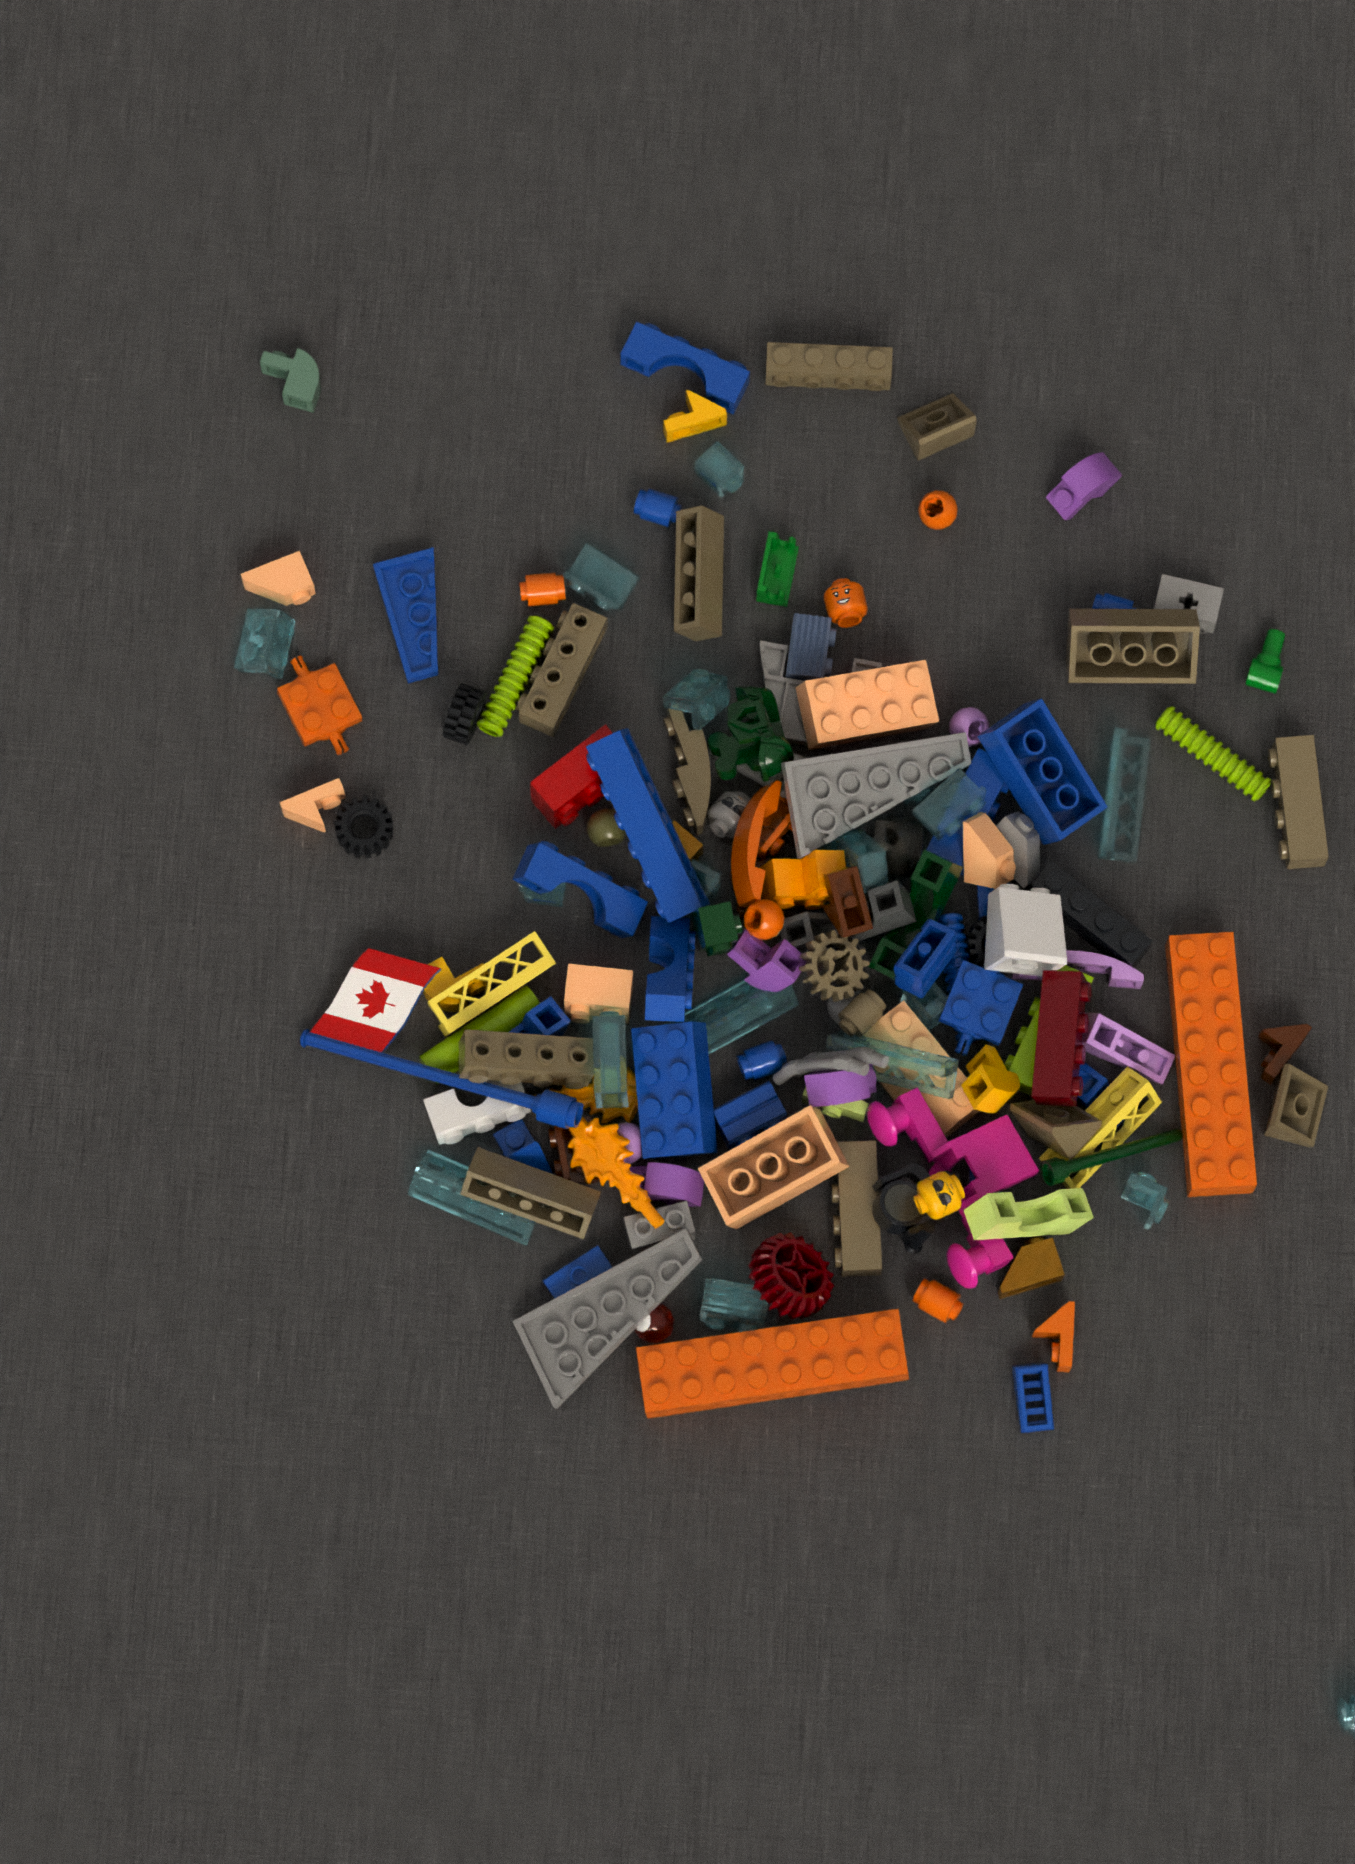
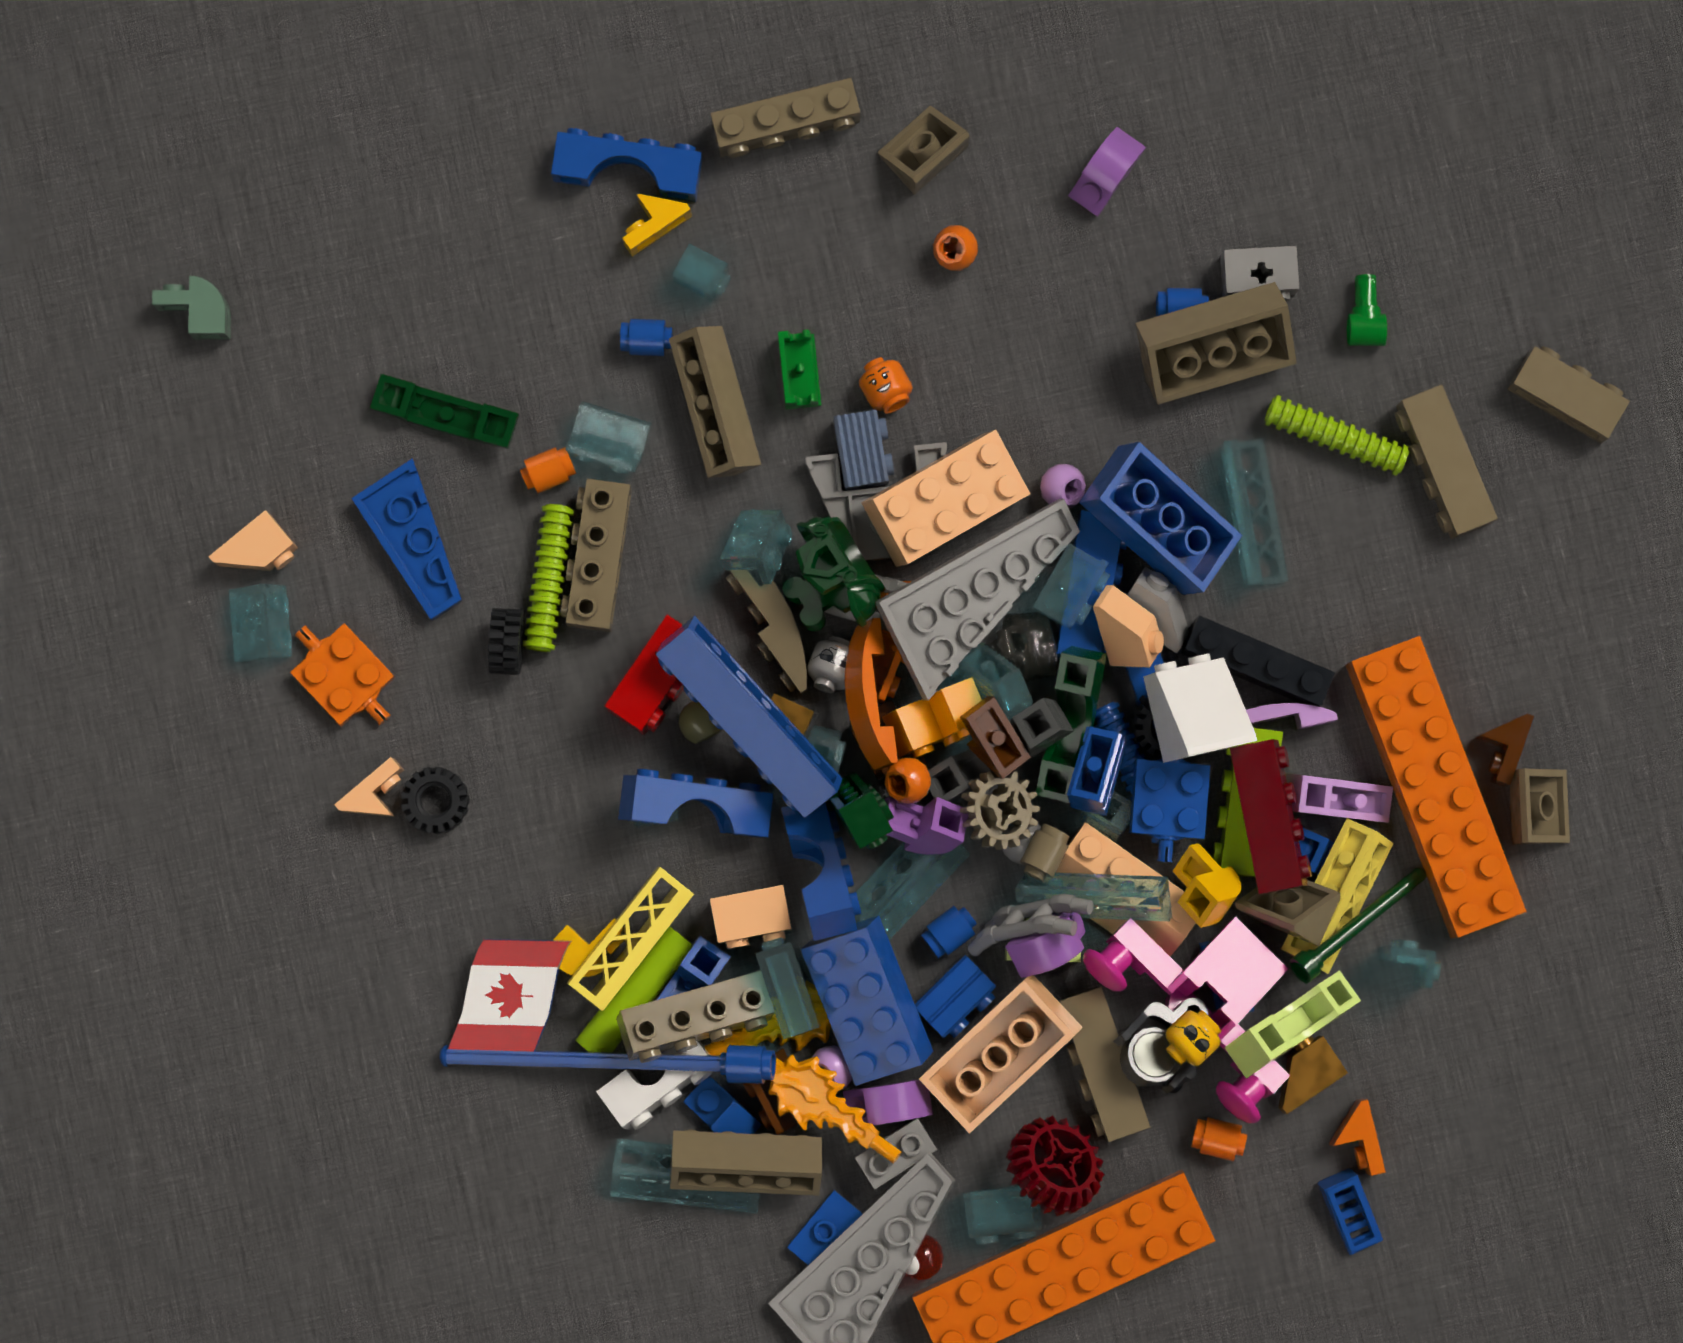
camera: 20 degrees left, 10 degrees up
(471, 520) = (444, 412): none -> dark green slope

